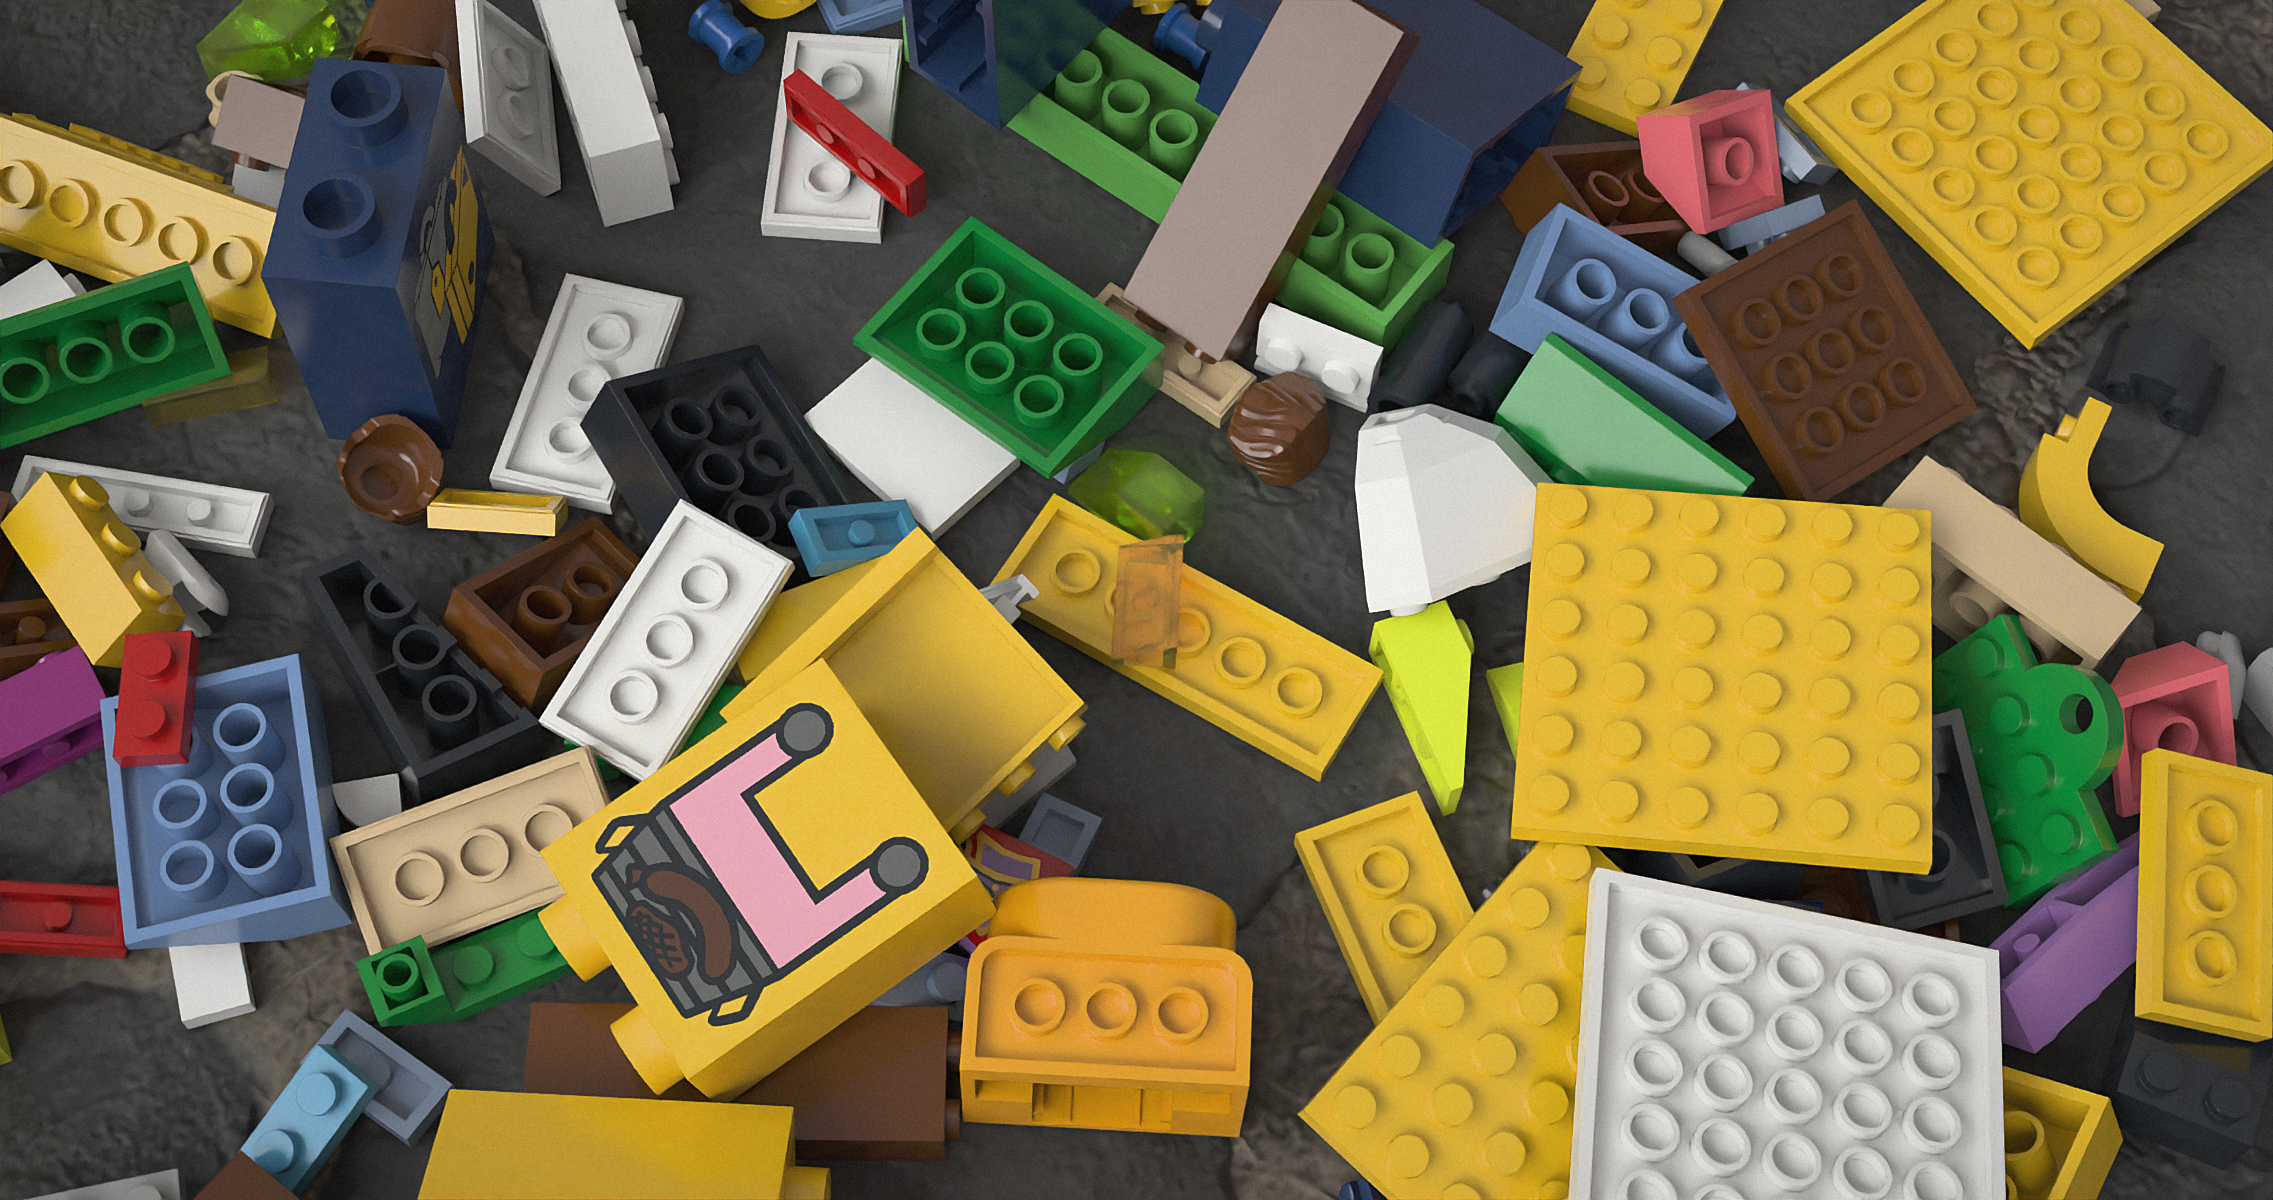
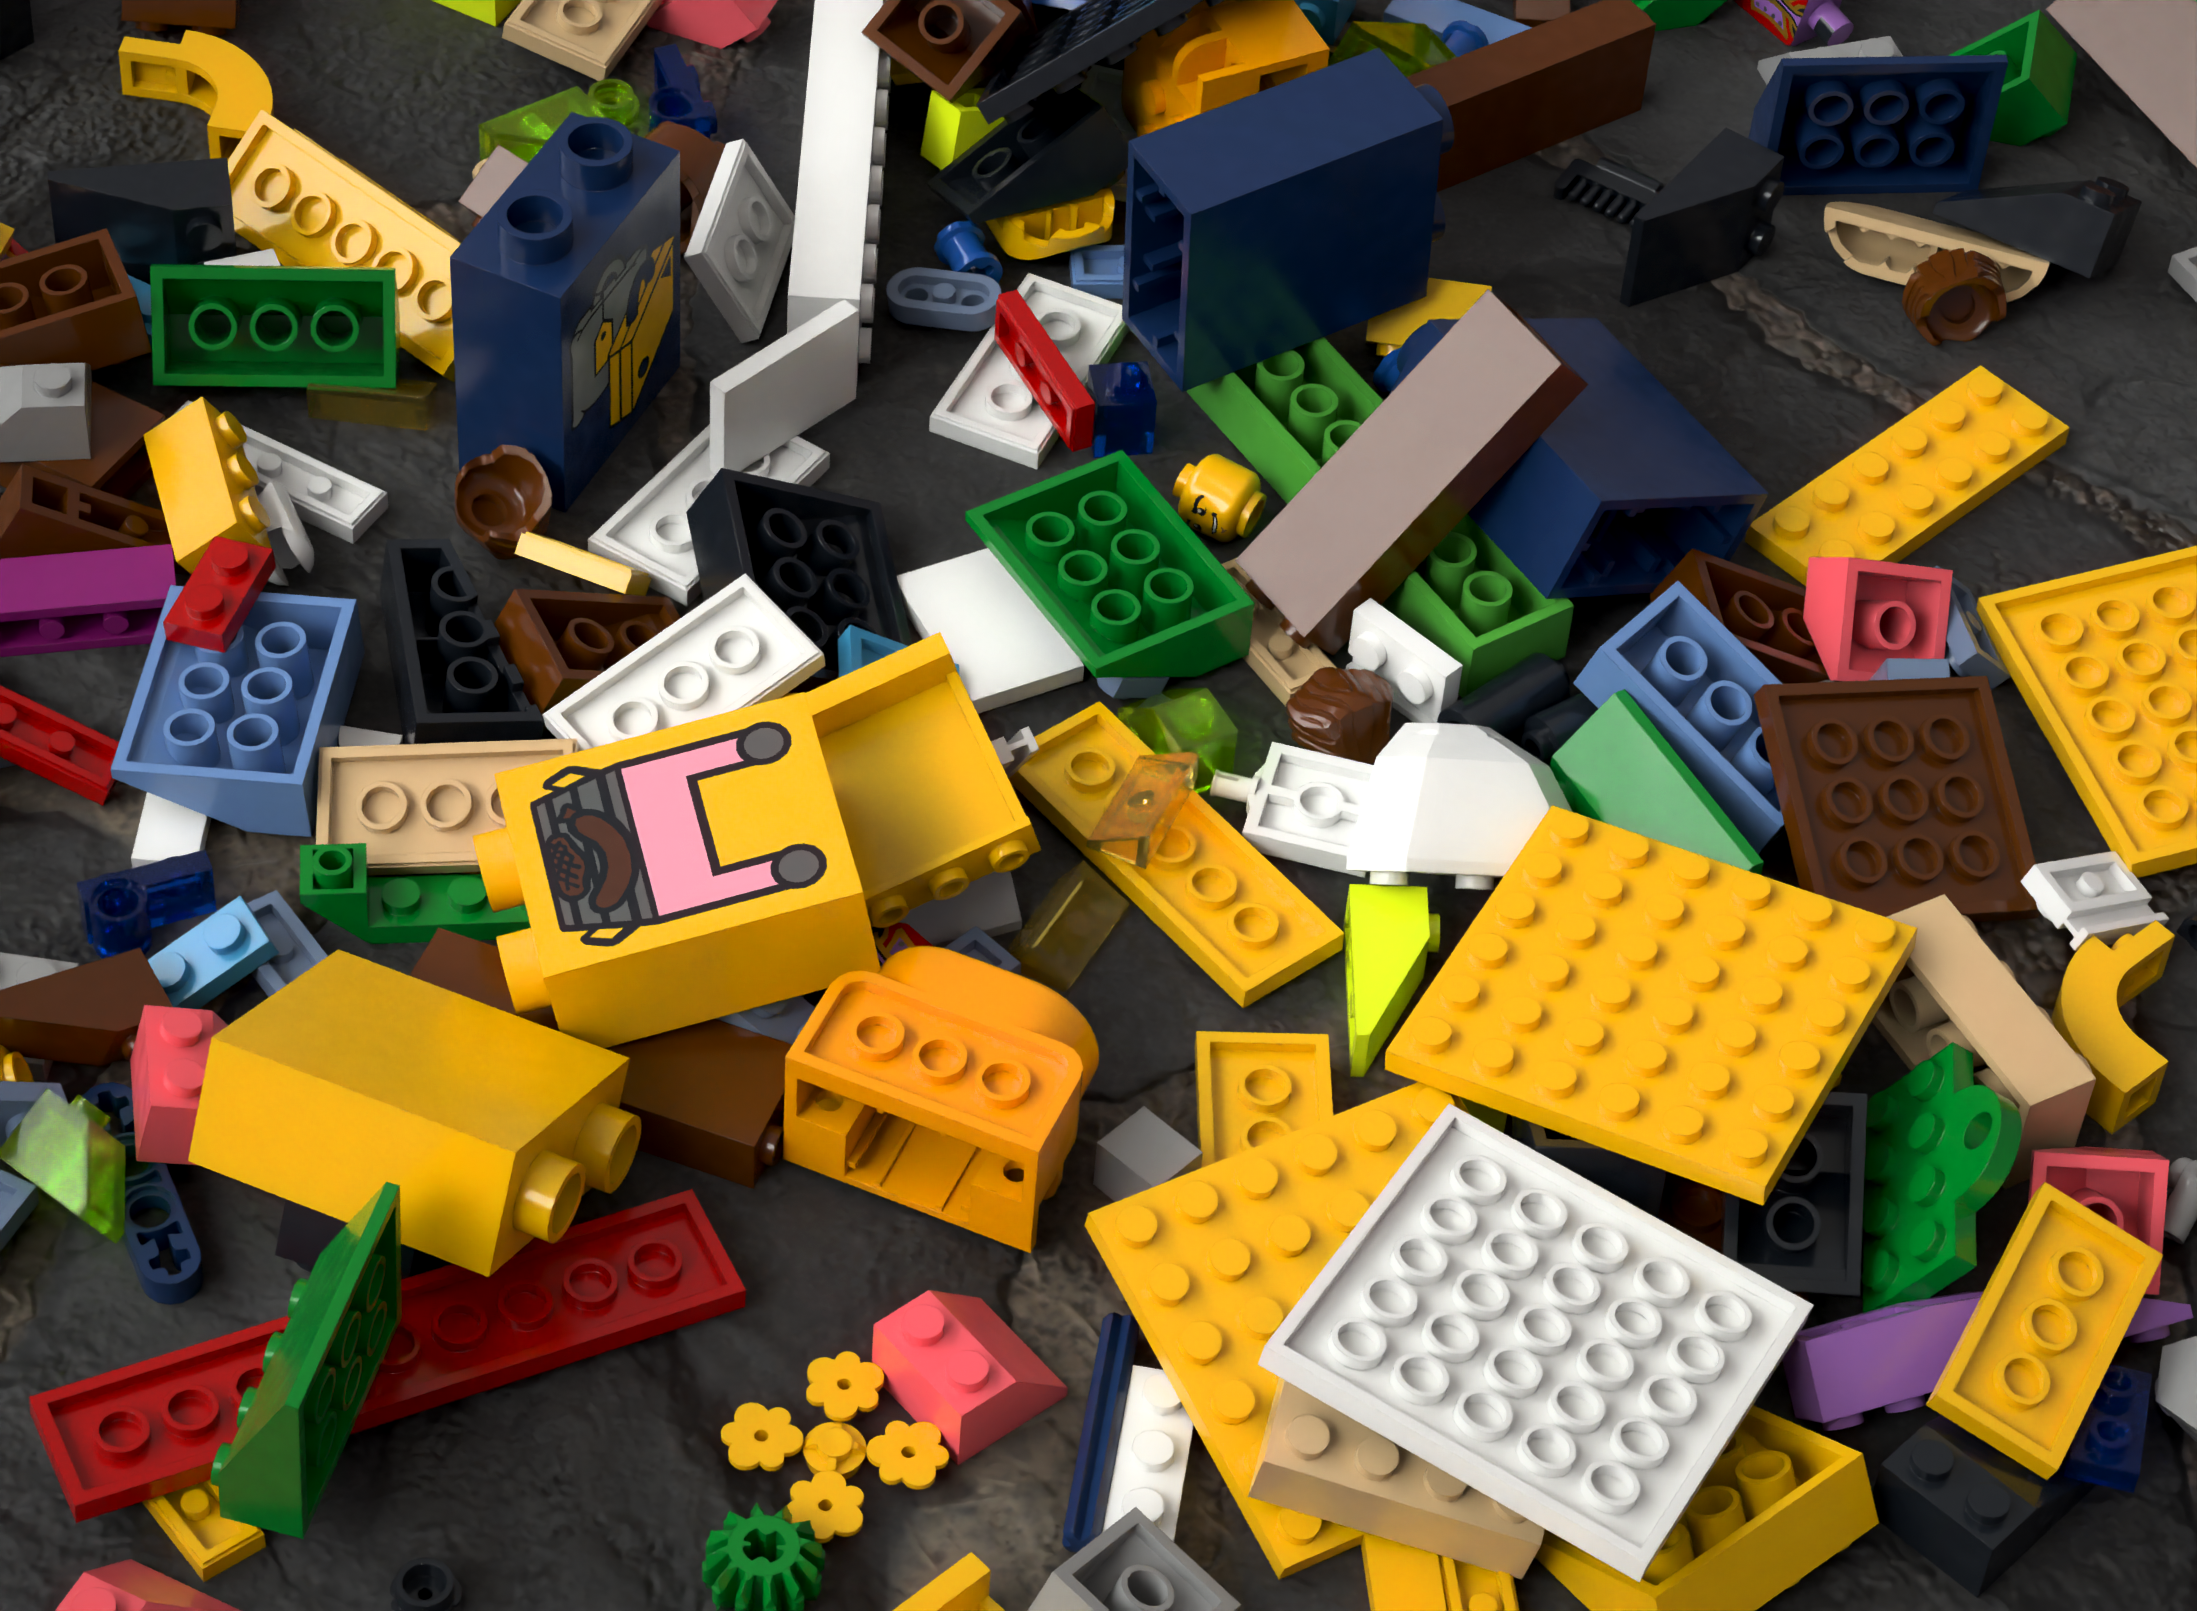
camera: 20 degrees right, 15 degrees down
(233, 1050) = (127, 904): none -> clear blue plate
(621, 258) = (784, 389): none -> white tile
(724, 89) = (943, 299): none -> sand blue plate
(945, 154) = (1123, 408): none -> clear blue brick
(1069, 224) = (1219, 498): none -> yellow head
(1119, 753) = (1068, 927): none -> clear yellow slope
(1292, 537) = (1300, 805): none -> white plate
(1316, 1005) = (1141, 1156): none -> light grey brick
(2018, 388) = (2091, 897): none -> white plate

